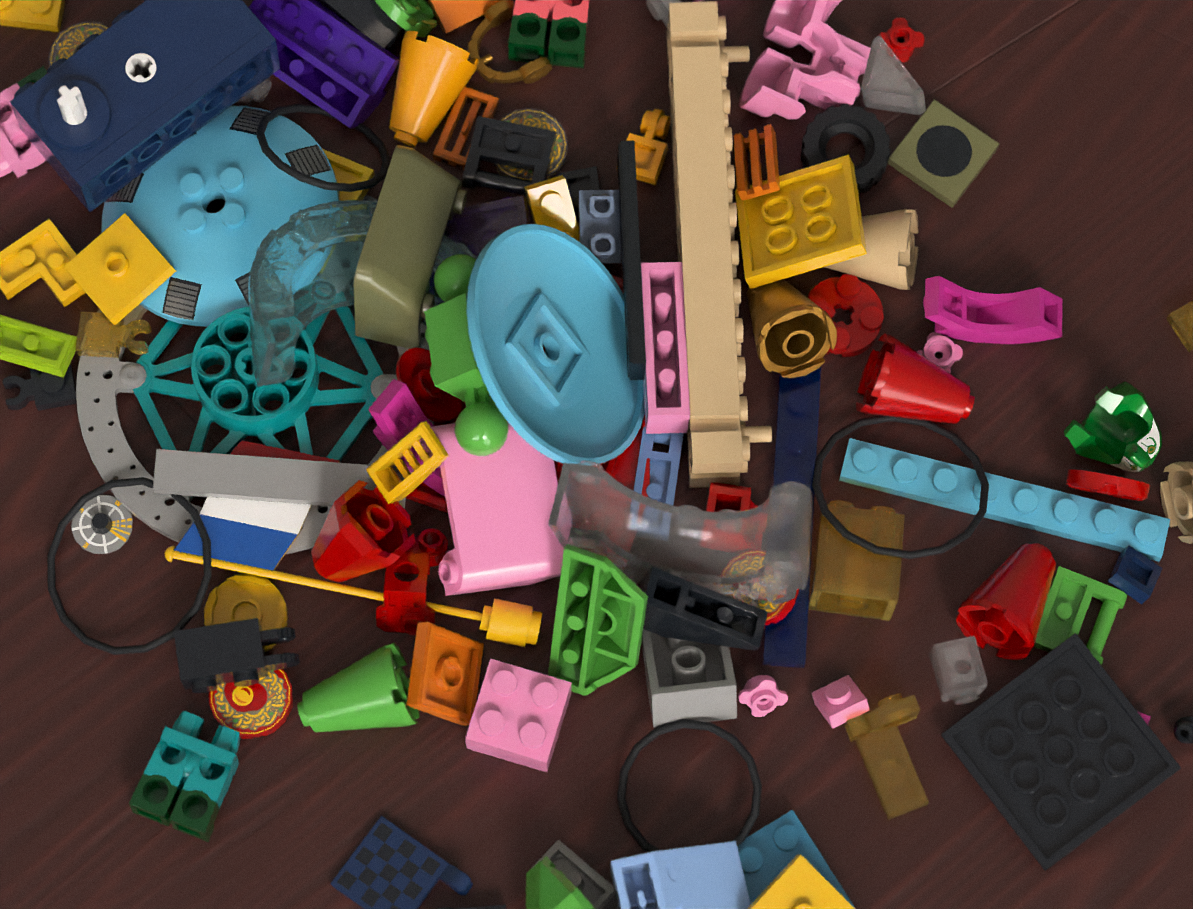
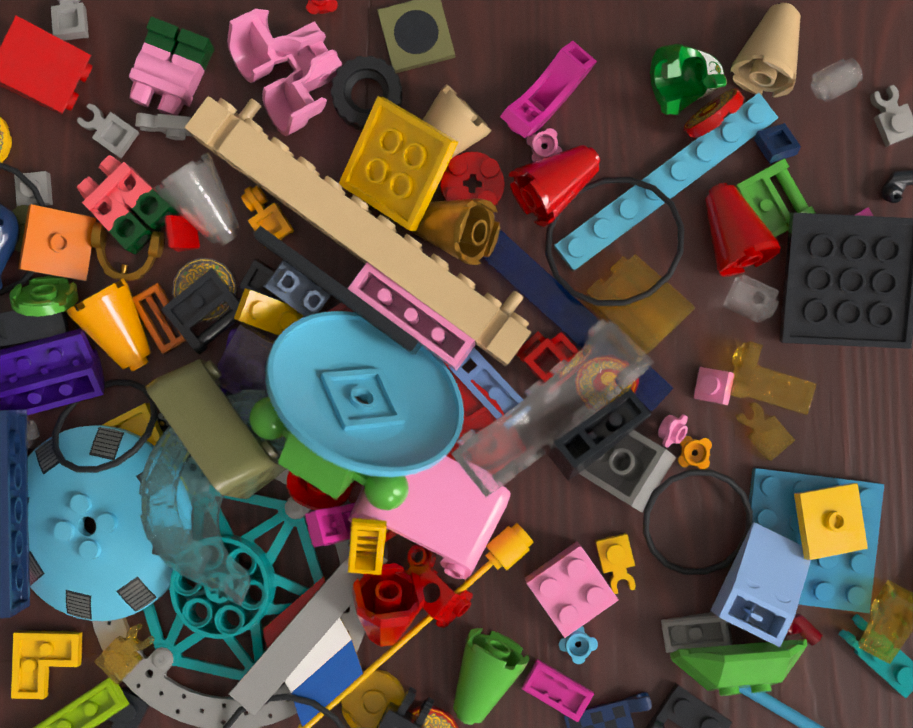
camera: 45 degrees left, 15 degrees up
(119, 269) = (85, 618): yellow plate -> none
(403, 785) = (557, 690): none -> dark pink plate
(444, 673) = (511, 616): orange plate -> none
(458, 763) = (578, 653): none -> medium azure plate
(565, 84) = (181, 234): none -> red slope
(586, 742) = (615, 557): none -> yellow plate
(595, 622) = (556, 502): bright green wedge -> none
(613, 75) = (201, 199): none -> clear cone
(753, 142) = (314, 145): orange tile -> none
(759, 726) = (701, 460): none -> light orange plate
(836, 799) = (768, 434): none -> clear yellow plate
(889, 84) = (345, 28): clear slope -> none

